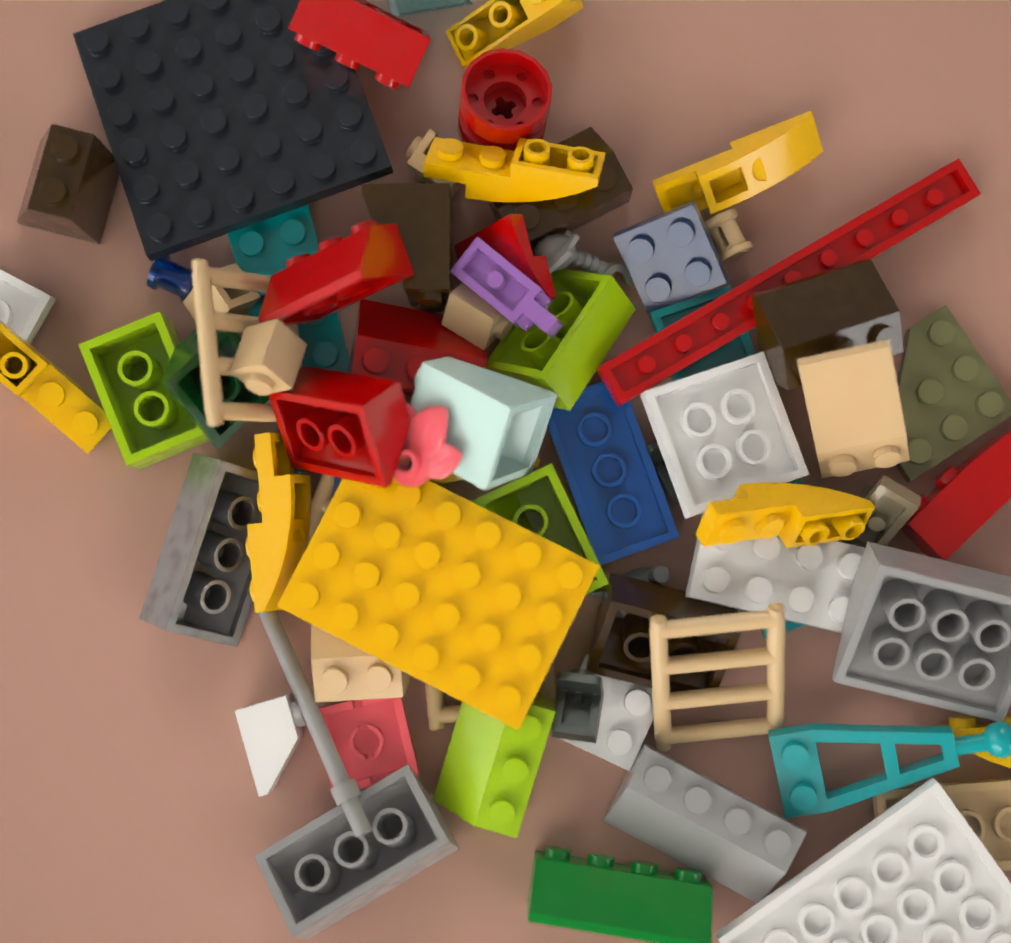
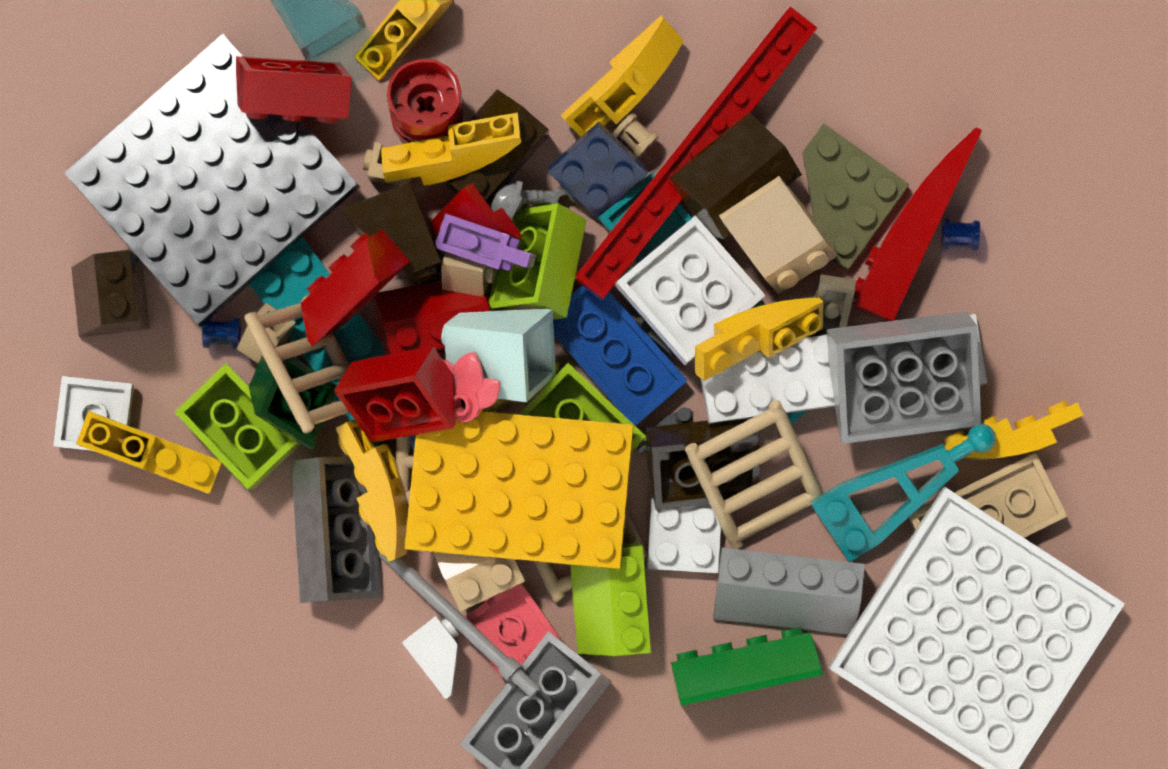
camera: 20 degrees left, 0 degrees up
(268, 358) = (327, 366): tan brick -> none
(578, 705) = (658, 536): pearl dark grey bracket -> none

